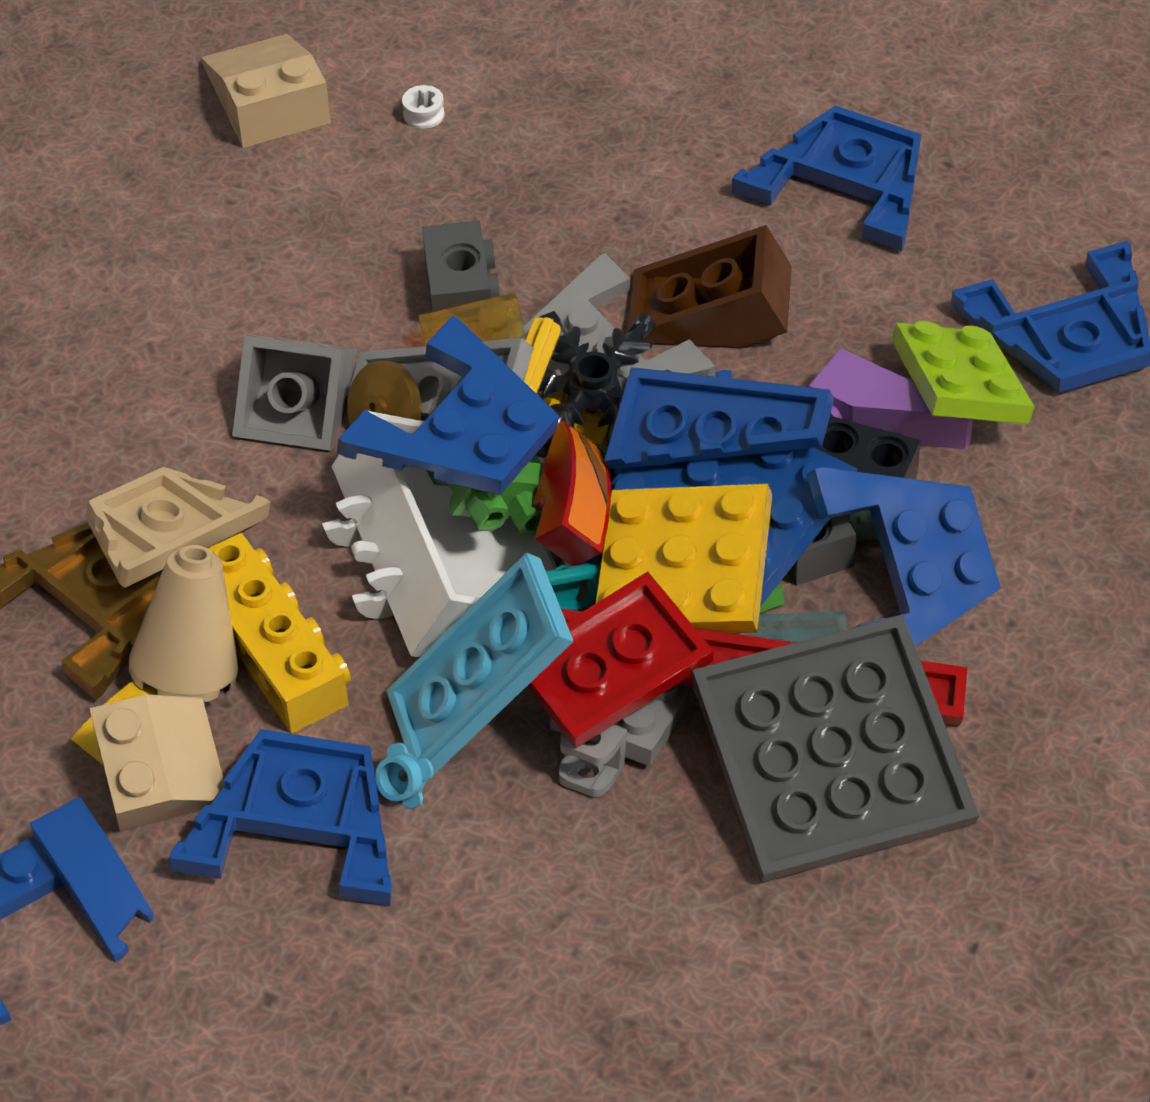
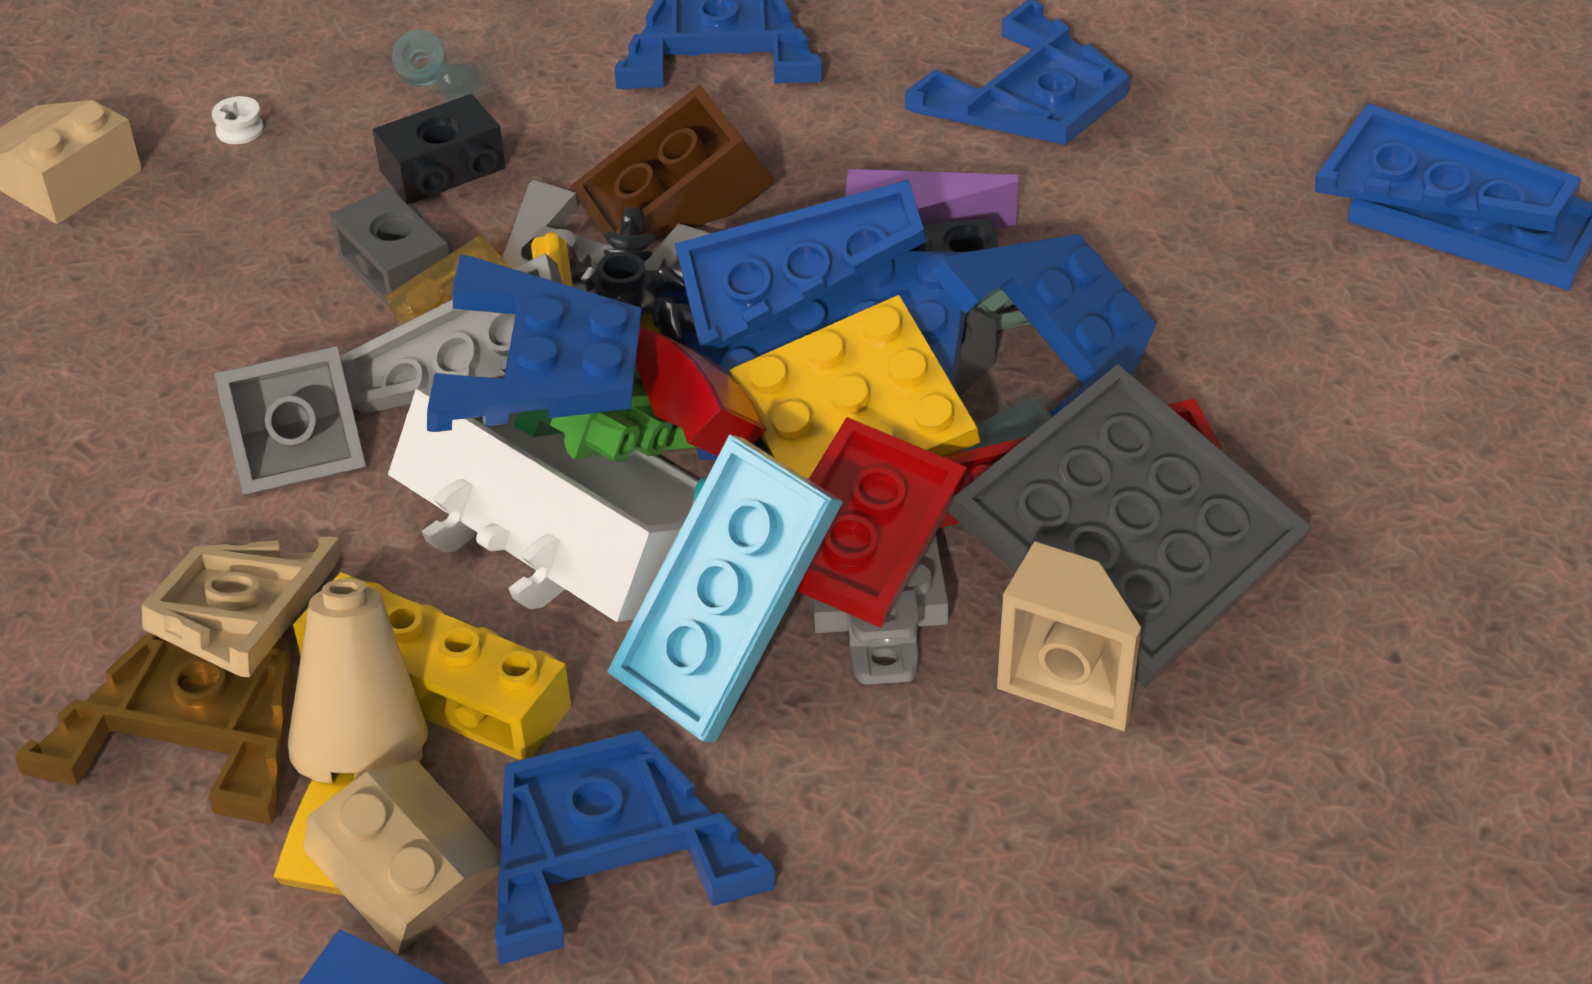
camera: 30 degrees left, 5 degrees down
(384, 389) = (390, 381): pearl gold piece -> none
(392, 782) = (713, 734): medium azure plate -> none
(550, 196) = (439, 148): none -> black brick
(611, 136) = (453, 80): none -> clear light blue plate
(703, 812) = (1068, 637): none -> tan slope
(962, 373) = (978, 150): lime plate -> none

